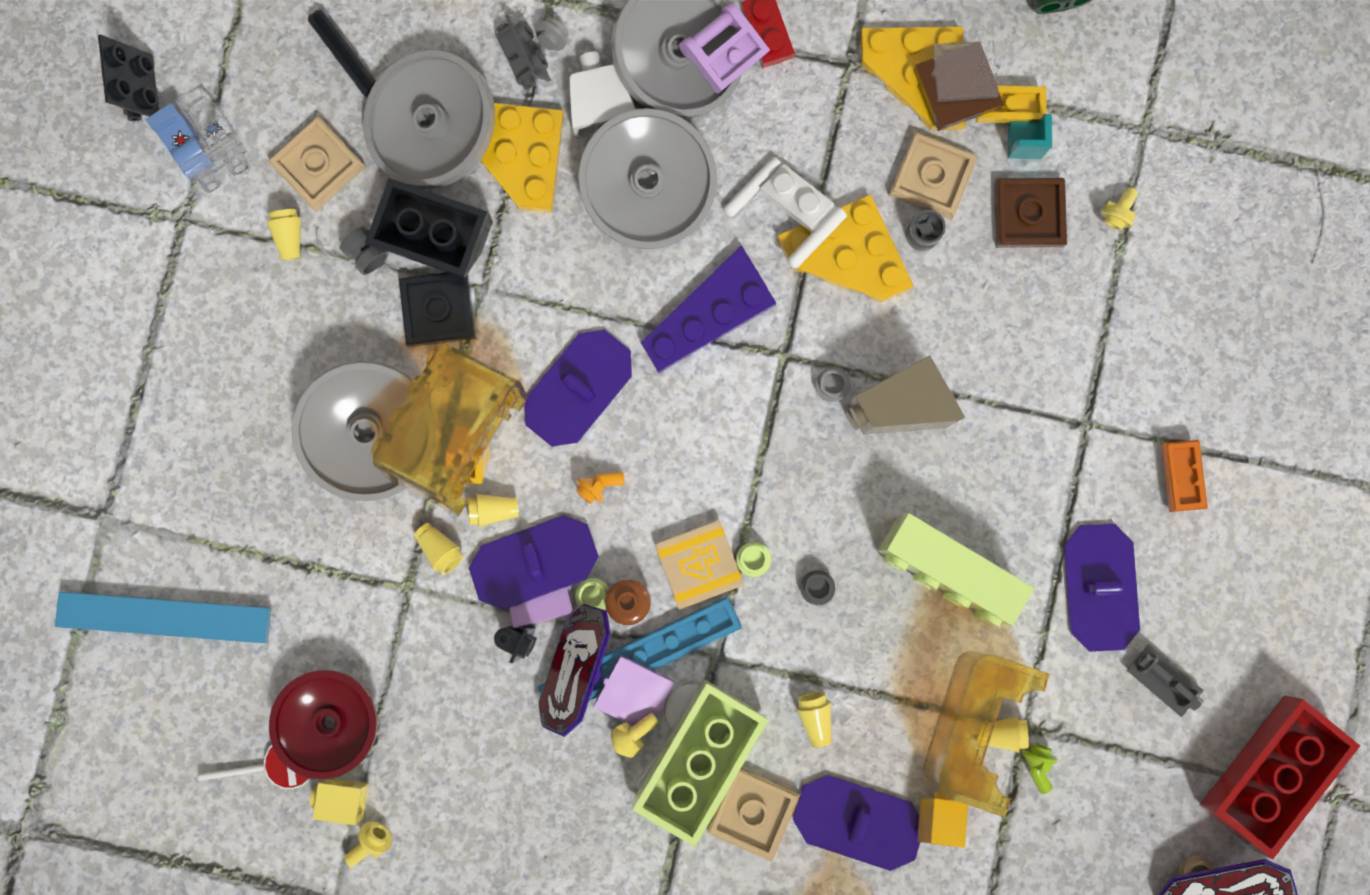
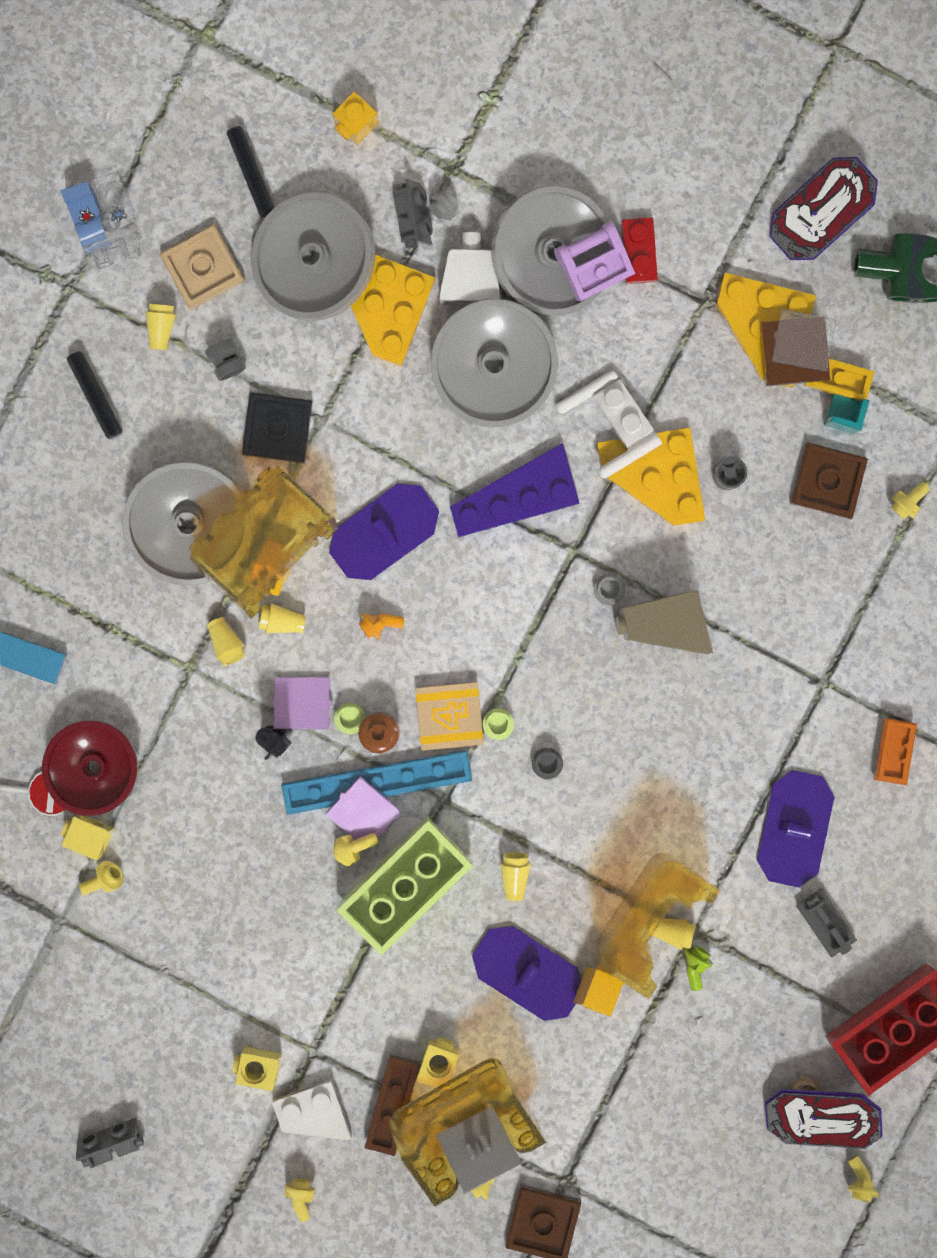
camera: 20 degrees right, 5 degrees up
(128, 78) = (54, 148): black hinge -> none
(234, 324) = (94, 395): none -> black axle
(429, 228) = (288, 358): black slope -> none
(533, 562) = (305, 675): dark purple shield -> none
(574, 669) = (317, 778): shield -> none
(754, 814) = (439, 942): tan tile -> none
(933, 175) = (751, 424): tan tile -> none
(954, 569) = (671, 782): yellowish green brick -> none

